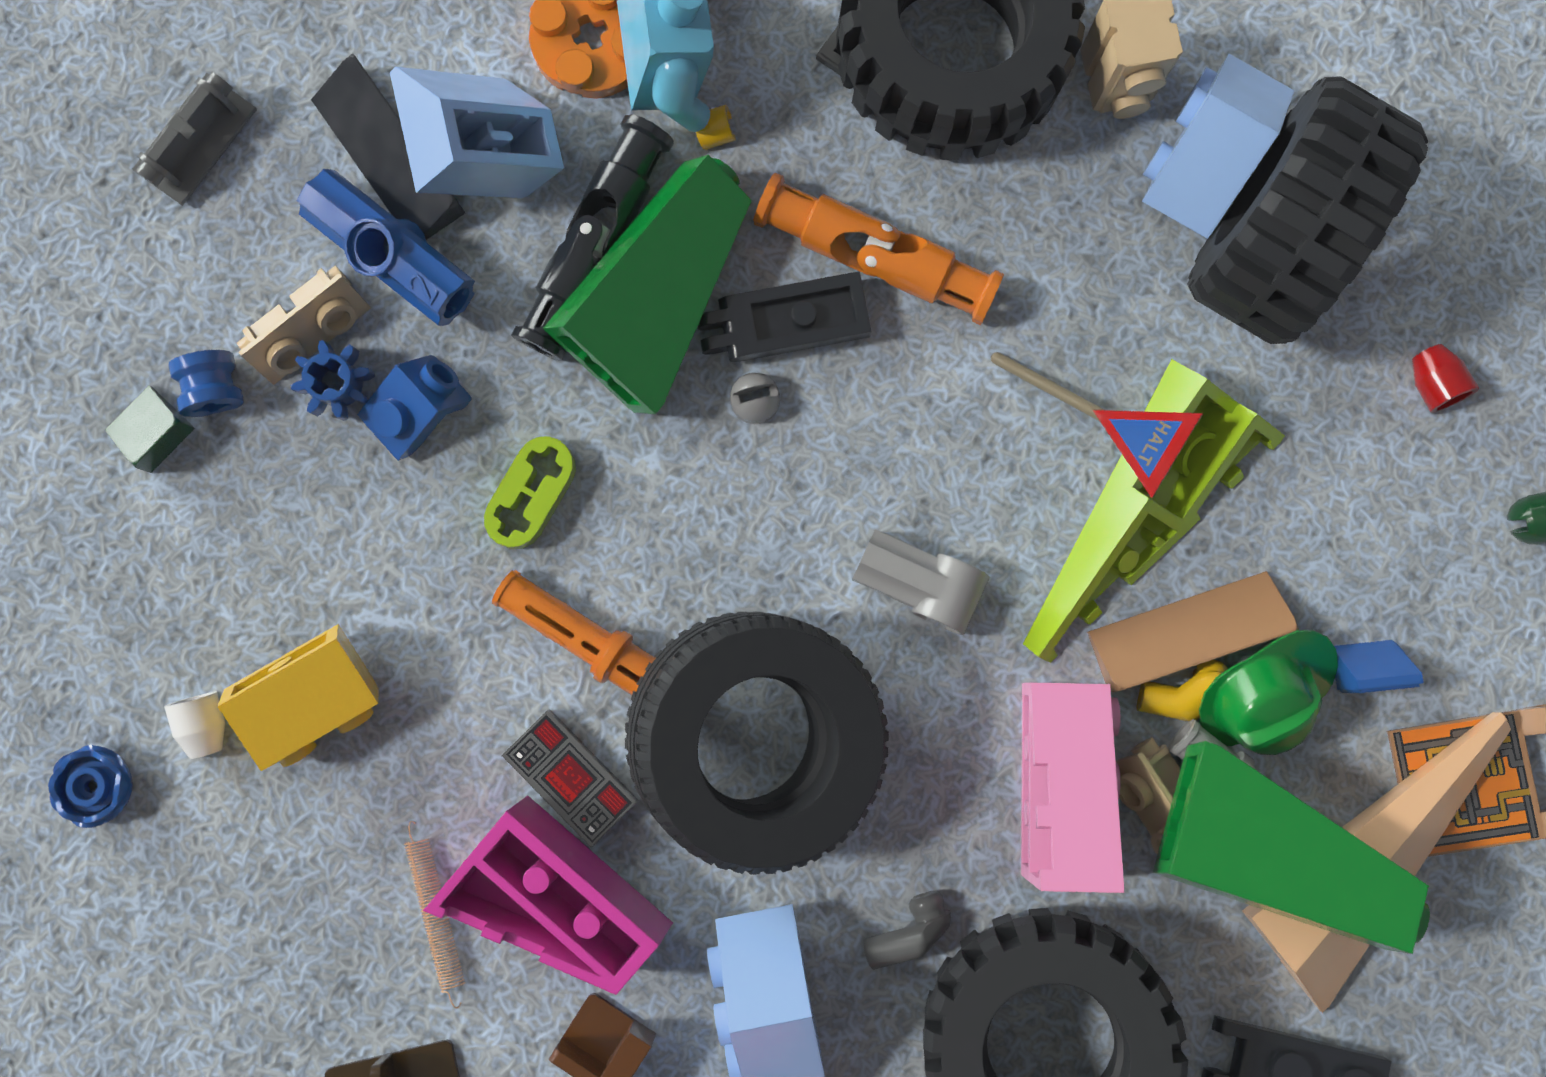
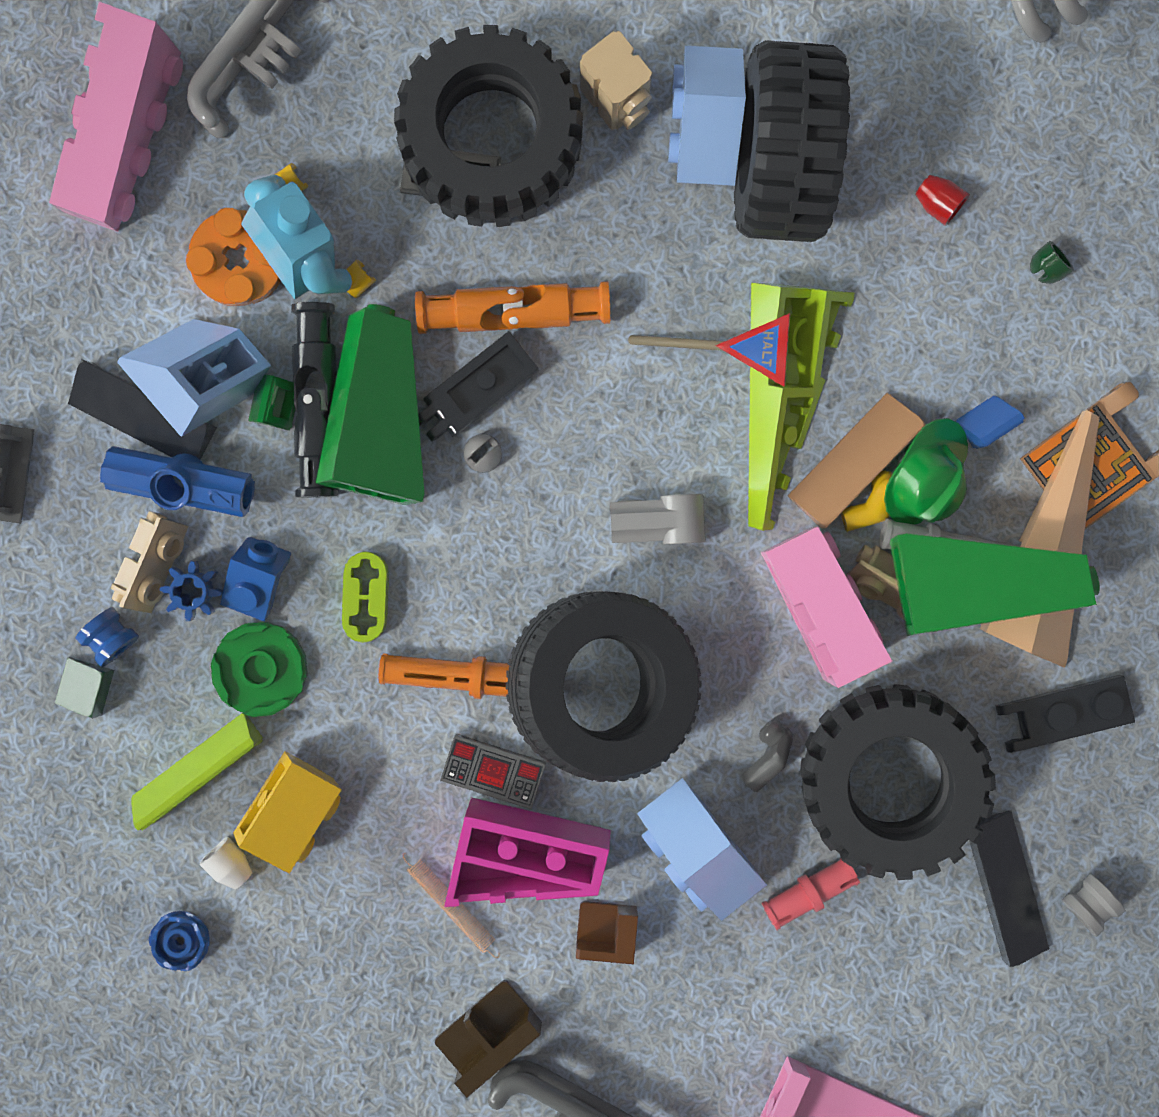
camera: 35 degrees left, 5 degrees up
(219, 594) = (194, 771): none -> lime slope
(384, 524) = (273, 662): none -> green tile
(544, 217) = (273, 403): none -> green slope

